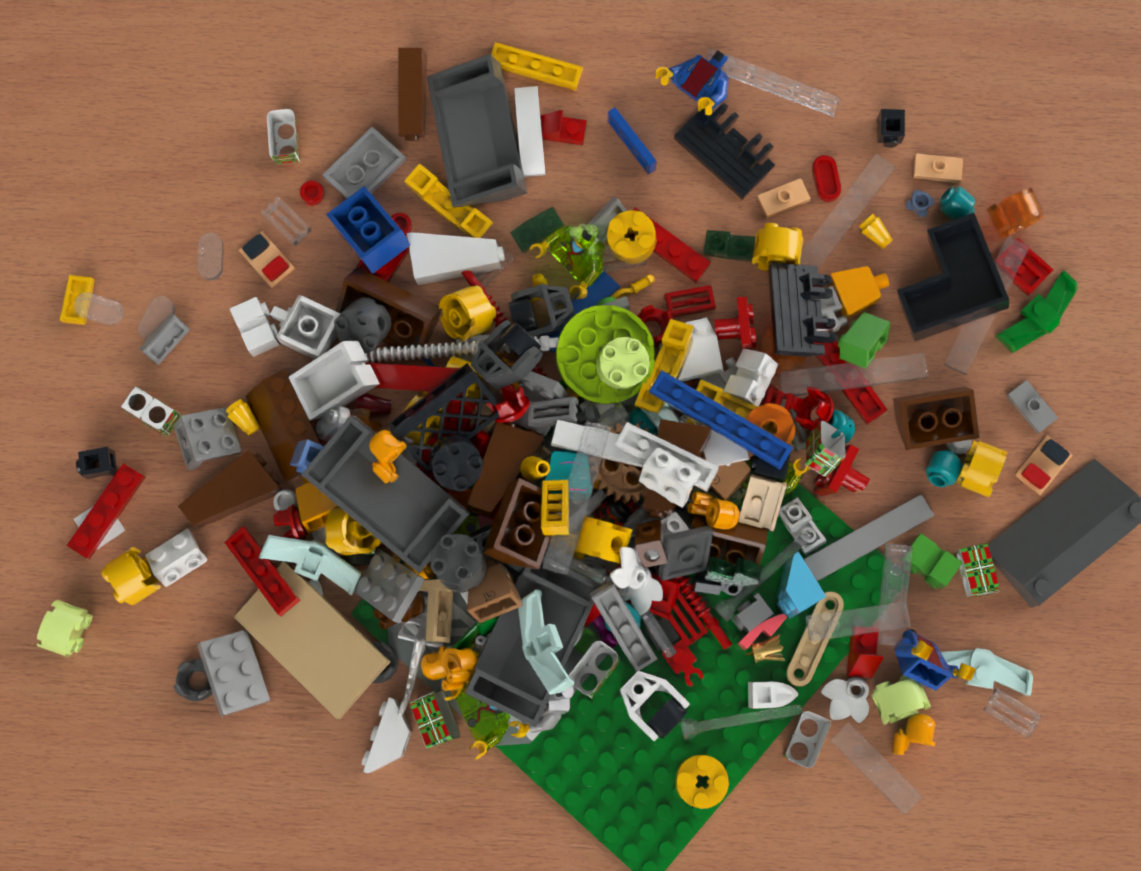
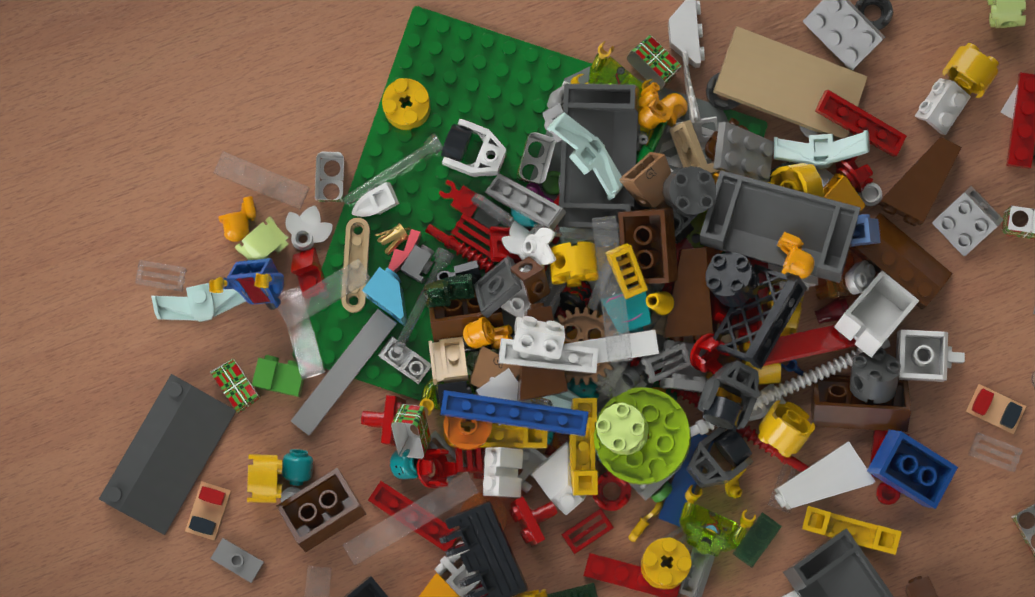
camera: 160 degrees right, 5 degrees up
(243, 417) = (945, 252): yellow cone -> none
(255, 327) = (974, 339): white brick -> none
(312, 193) = (984, 489): red tile -> none
(364, 164) = (947, 535): light grey plate -> none
(864, 339) = (414, 554): bright green brick -> none

